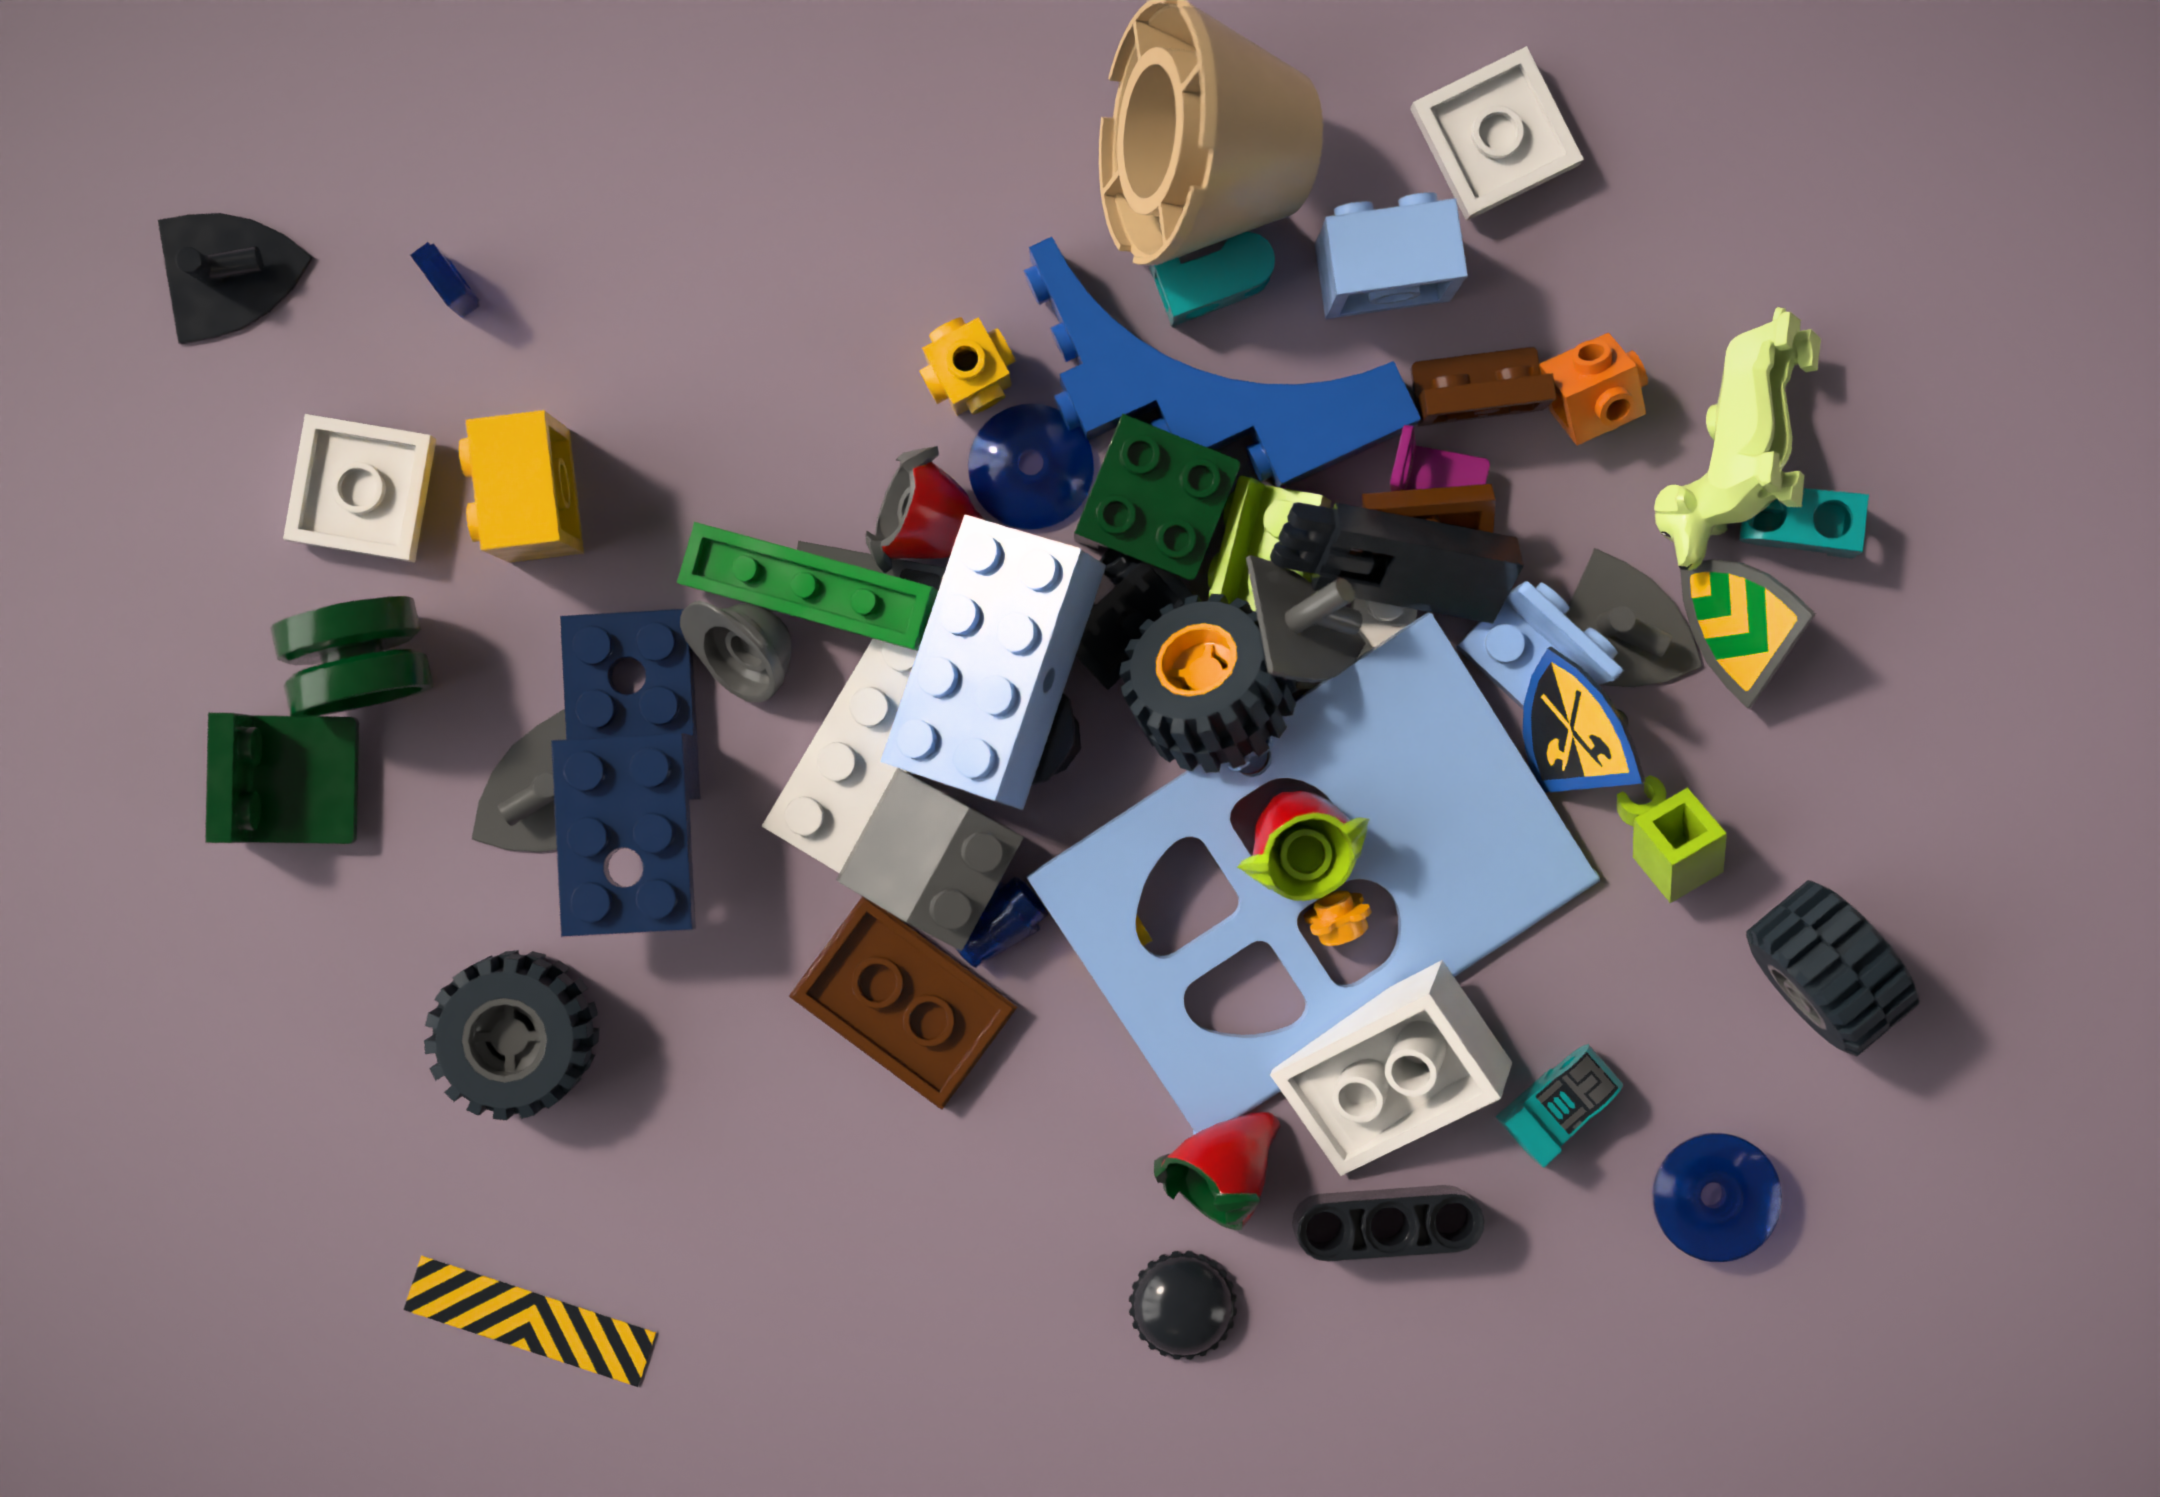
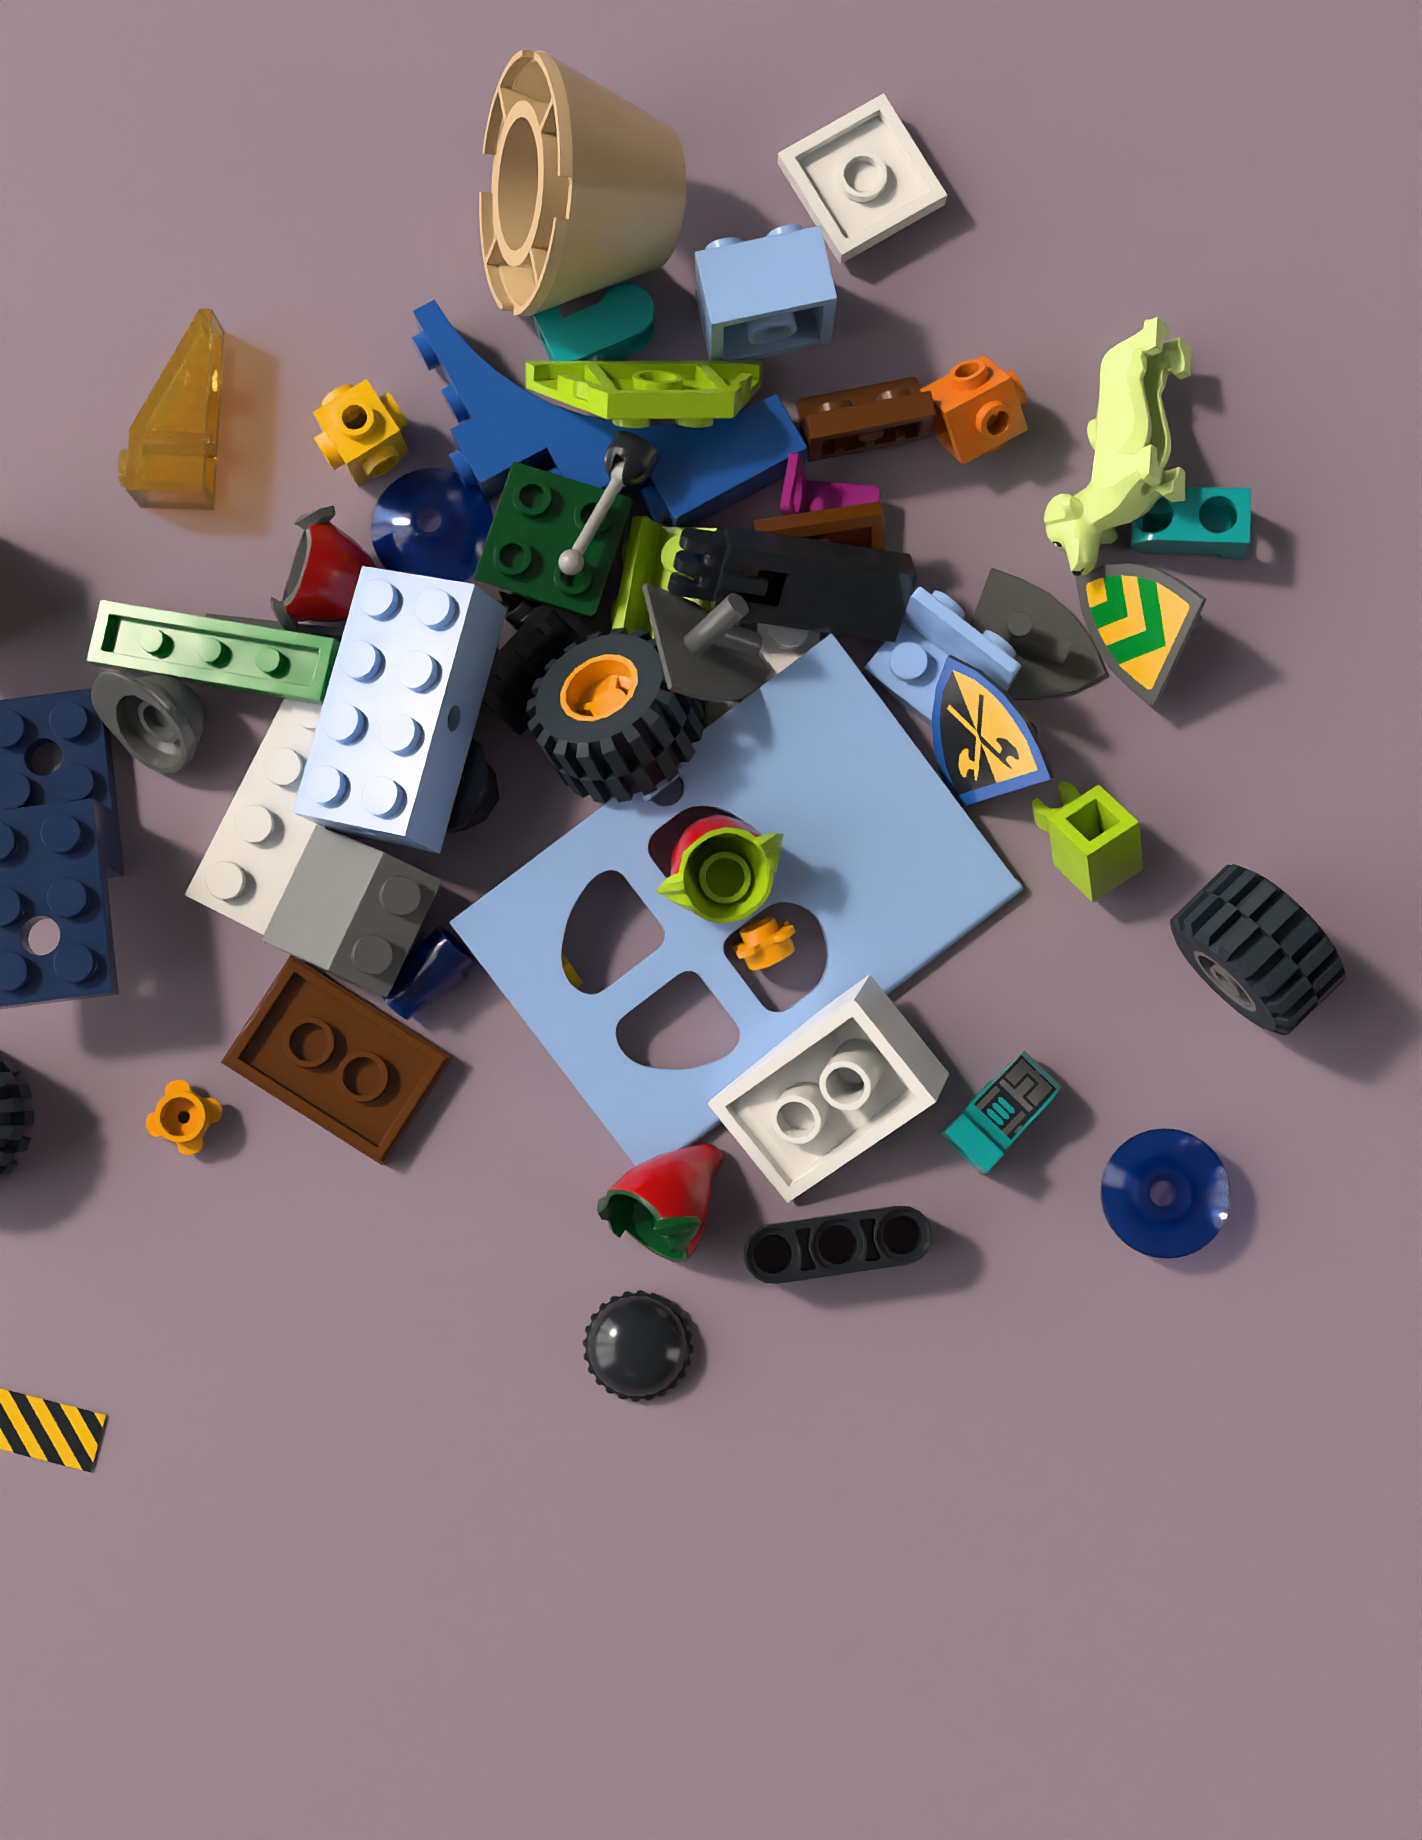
camera: 10 degrees left, 5 degrees down
(730, 1049) = (165, 1119): none -> light orange plate
(779, 351) = (177, 429): none -> clear yellow slope
(1239, 428) = (628, 463): none -> hinge
(1266, 349) = (648, 390): none -> lime wing

